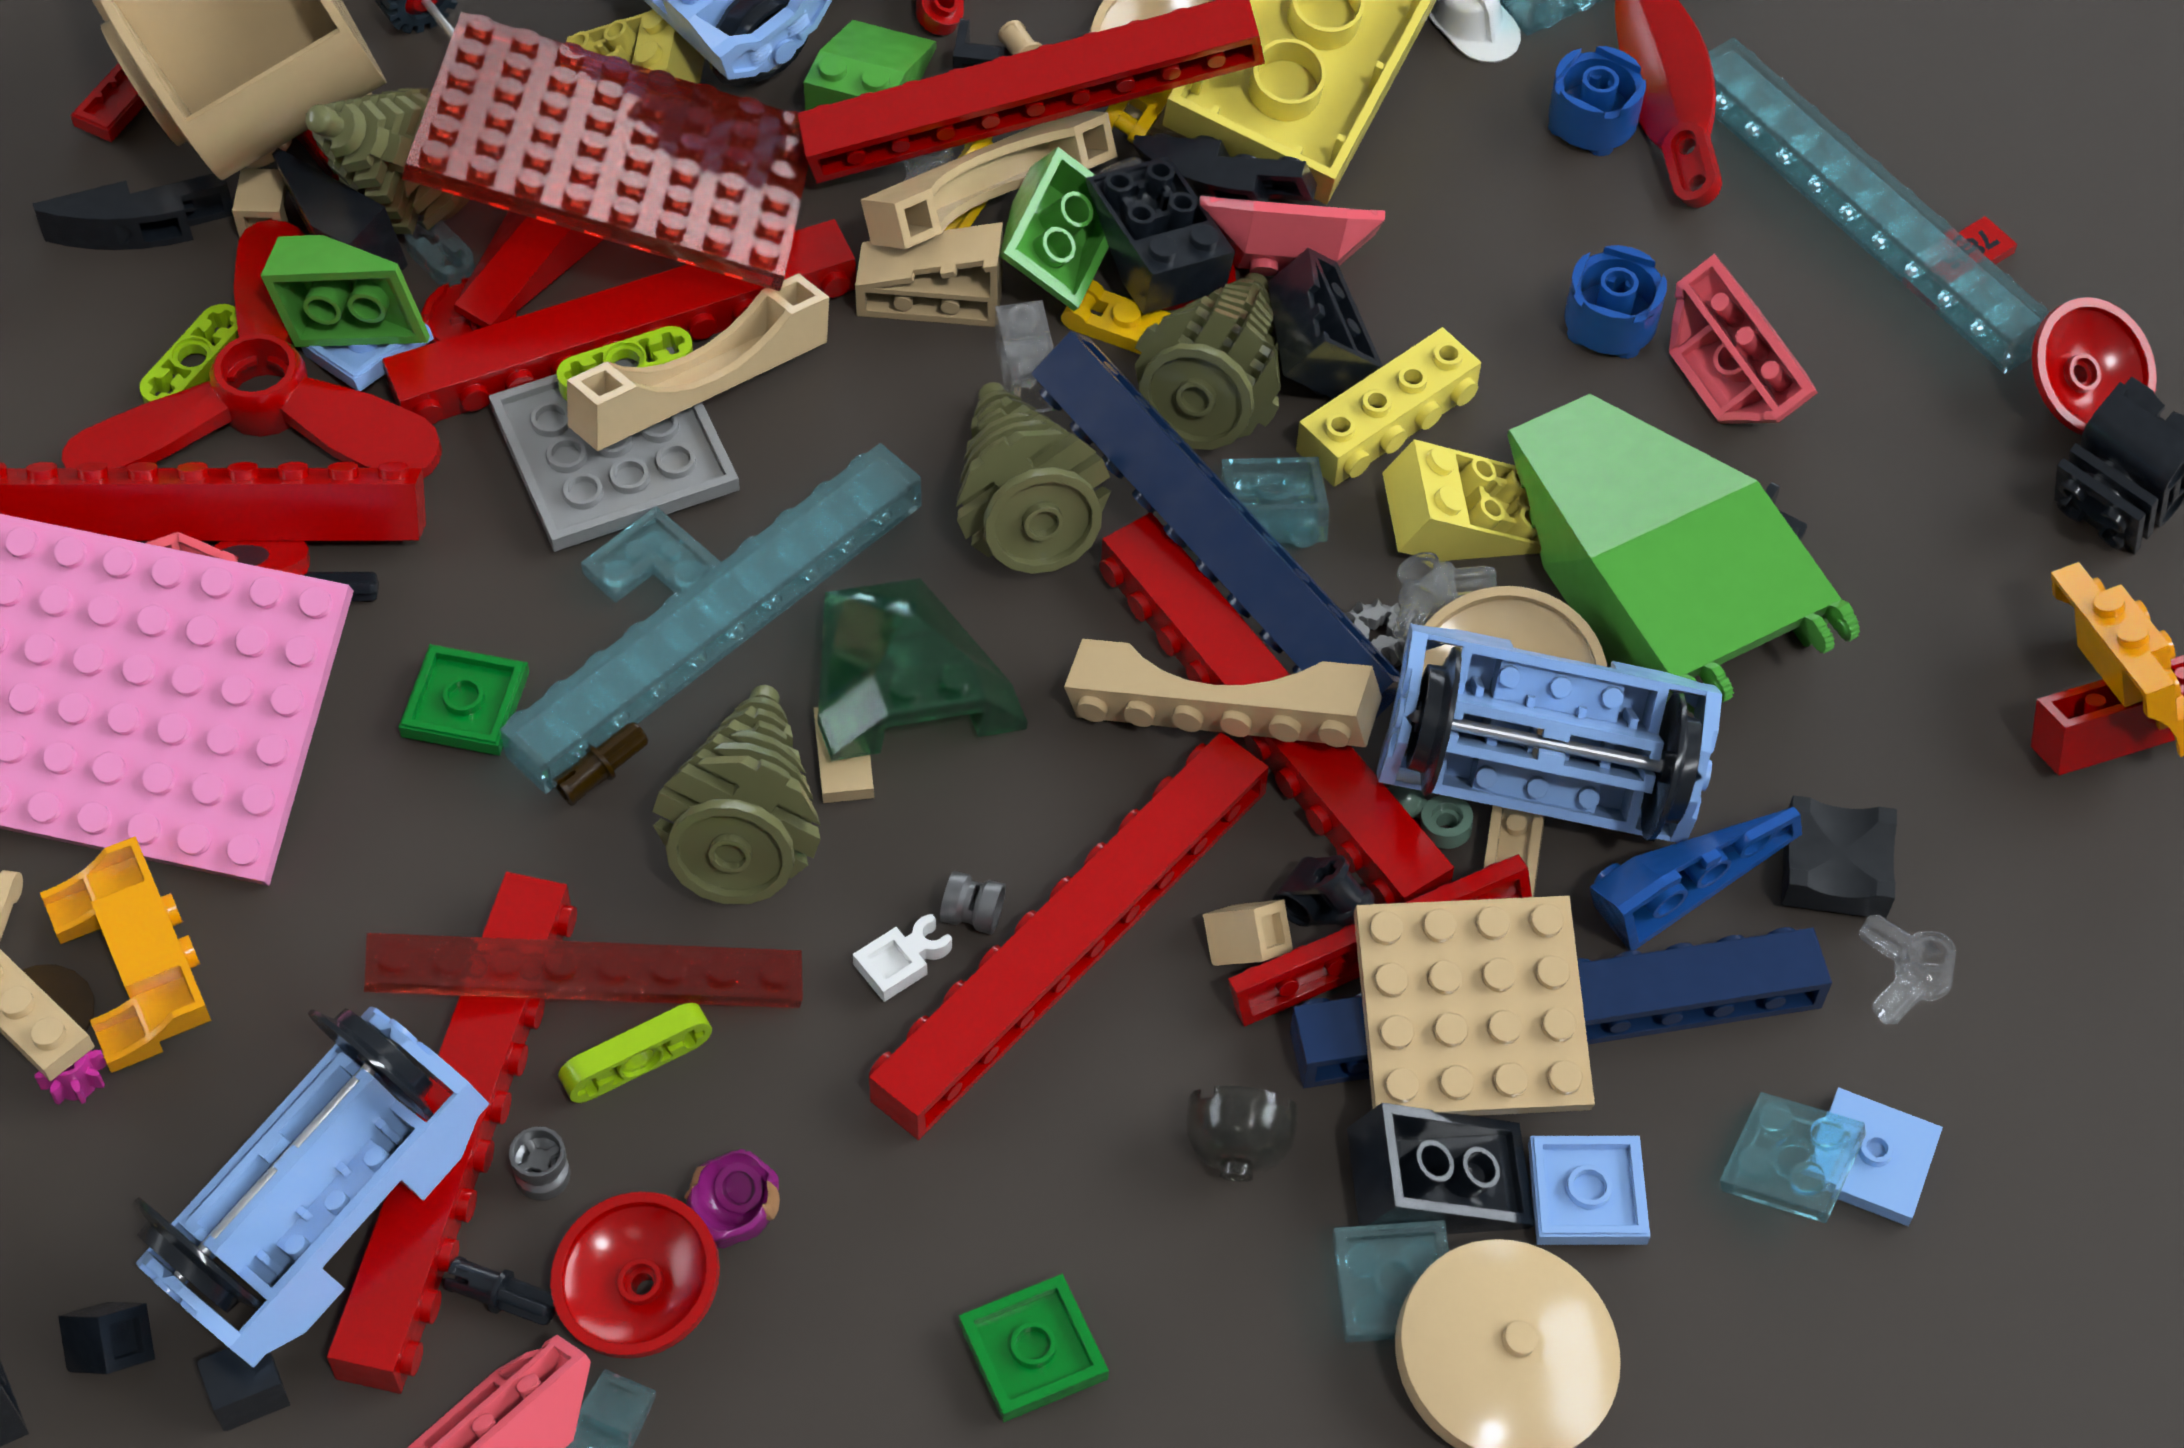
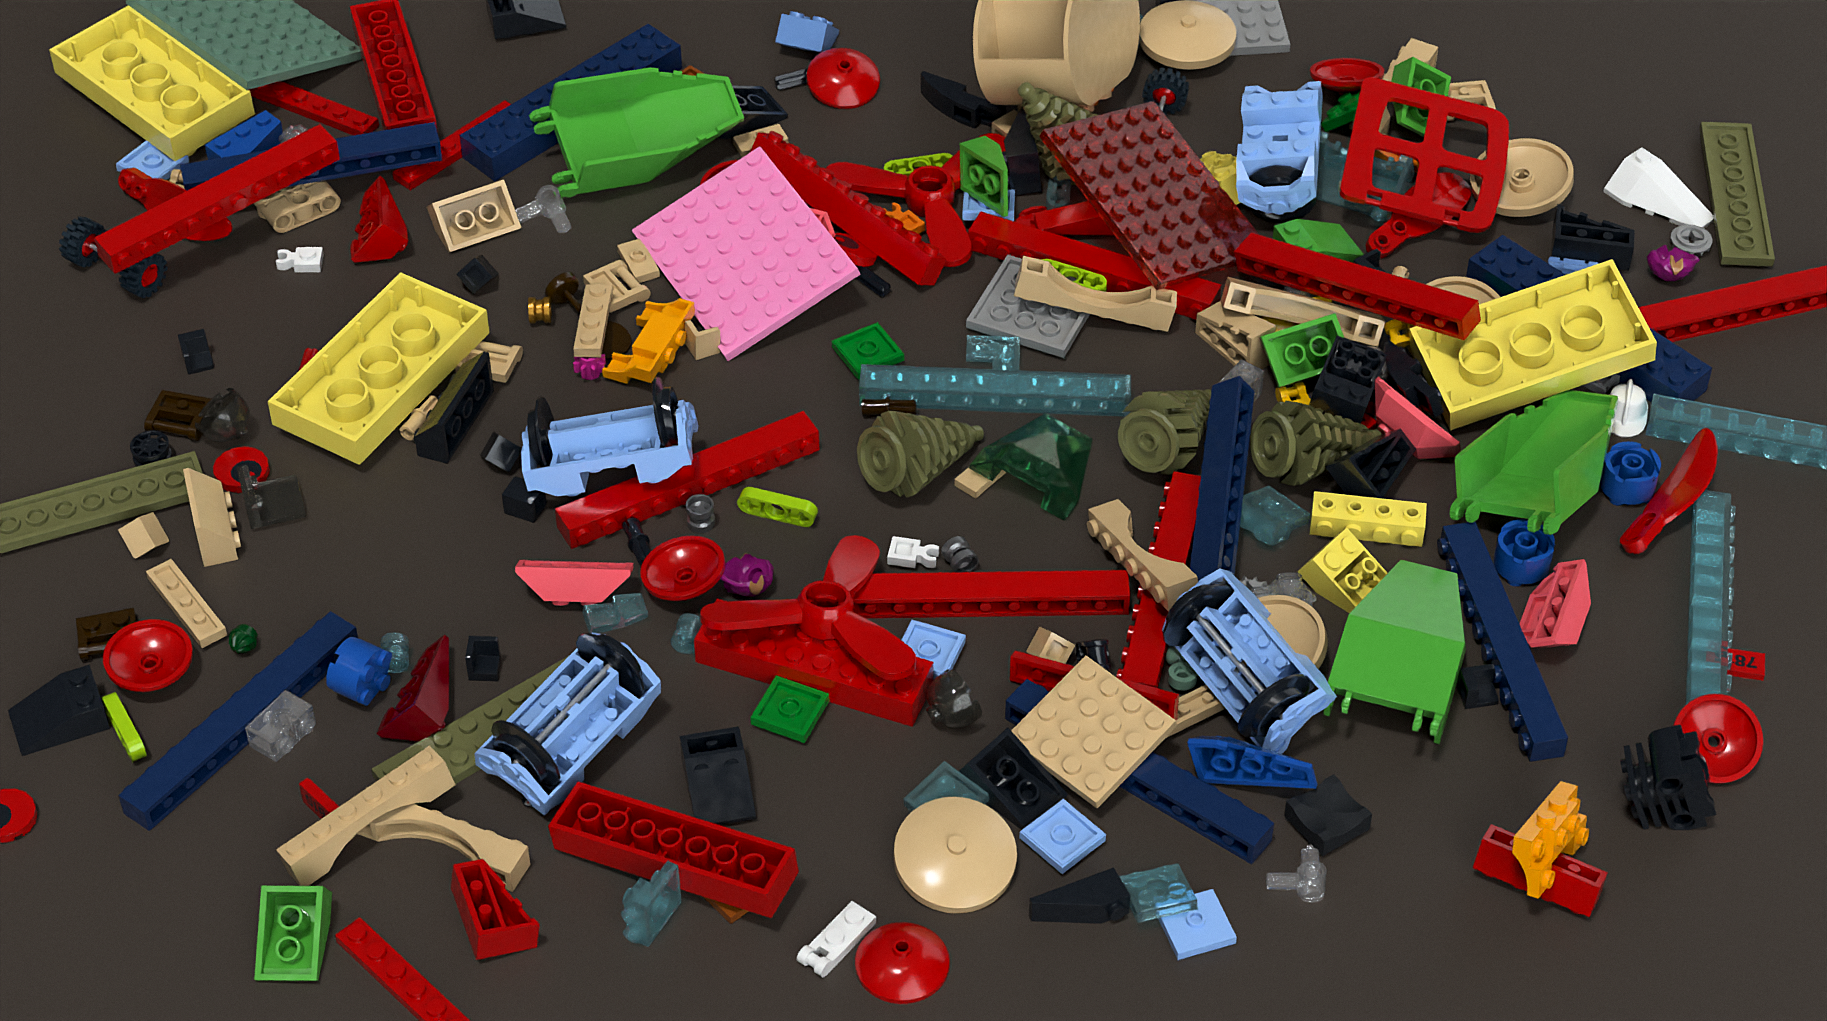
camera: 50 degrees right, 10 degrees down
(203, 890) = (702, 343): none -> tan panel
(274, 451) = (910, 220): none -> orange plate
(582, 970) = (789, 462): clear red plate -> none
(755, 1368) = (687, 629): none -> clear light blue wheel
(977, 1243) = (817, 664): none -> red brick
(1057, 1152) = (827, 612): none -> red piece
(1101, 1082) = (934, 644): none -> light blue plate
(1515, 155) = (1537, 461): none -> bright green windscreen
(1735, 1249) = (1088, 900): none -> black slope
(1813, 478) = (1503, 643): none -> dark blue brick

